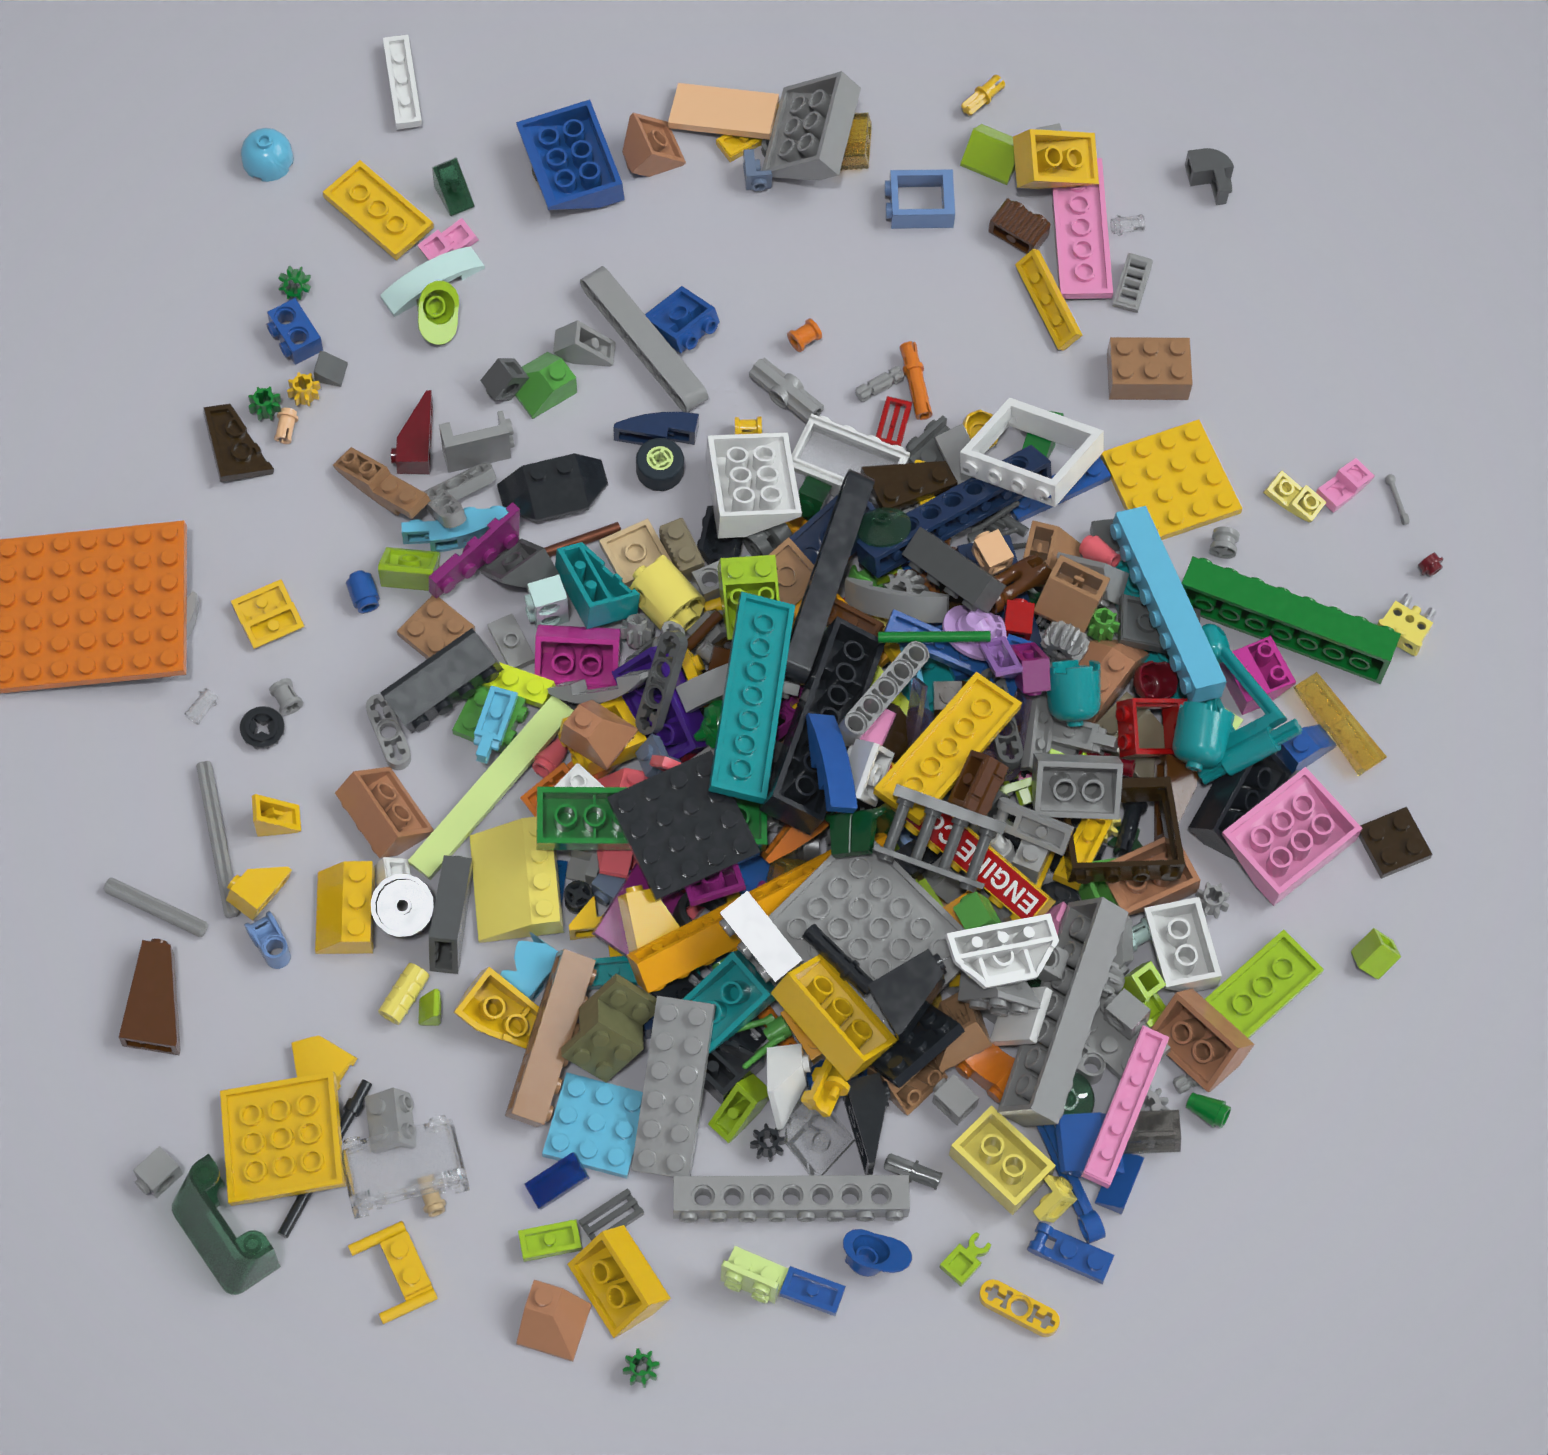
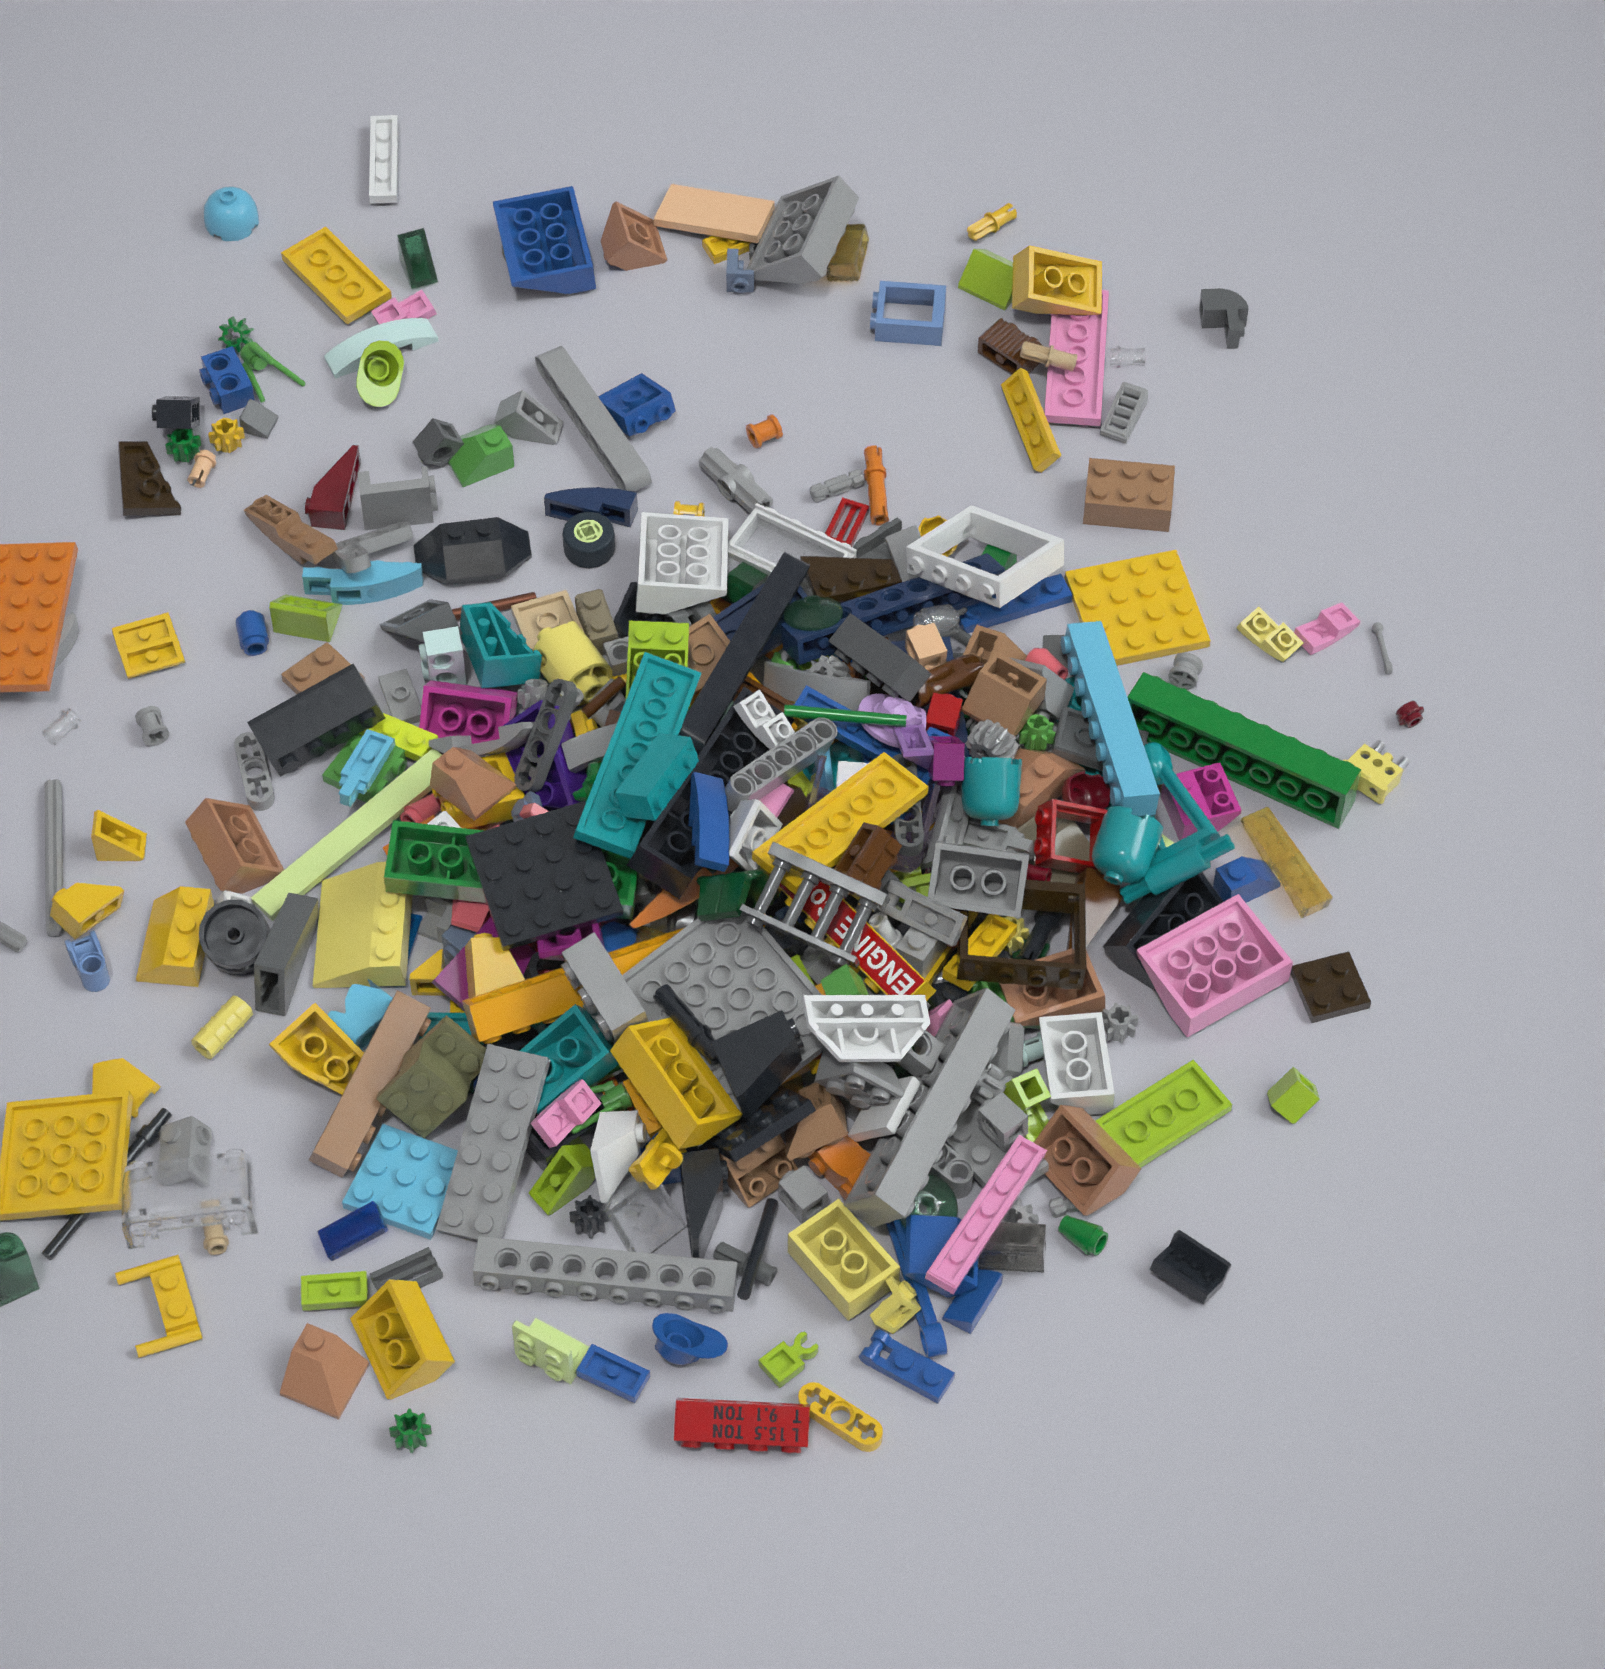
camera: 10 degrees right, 10 degrees down
(254, 373) = (177, 412): none -> black brick
(262, 715) = (123, 743): black gear -> none
(318, 306) = (257, 358): none -> bright green plant
(430, 1009) = (249, 1046): lime slope -> none
(477, 552) = (379, 603): magenta wing -> none
(576, 891) = (423, 944): black wheel -> none
(738, 1049) = (565, 1113): none -> bright pink slope
(777, 723) = (657, 776): none -> teal brick
(866, 655) = (762, 721): none -> white slope
(924, 1158) = (757, 1249): none -> black bar
(935, 1327) = (741, 1423): none -> red brick
(995, 517) = (943, 616): none -> clear brick
(1058, 235) = (1048, 356): none -> tan axle
(1308, 1131) = (1191, 1267): none -> black bracket

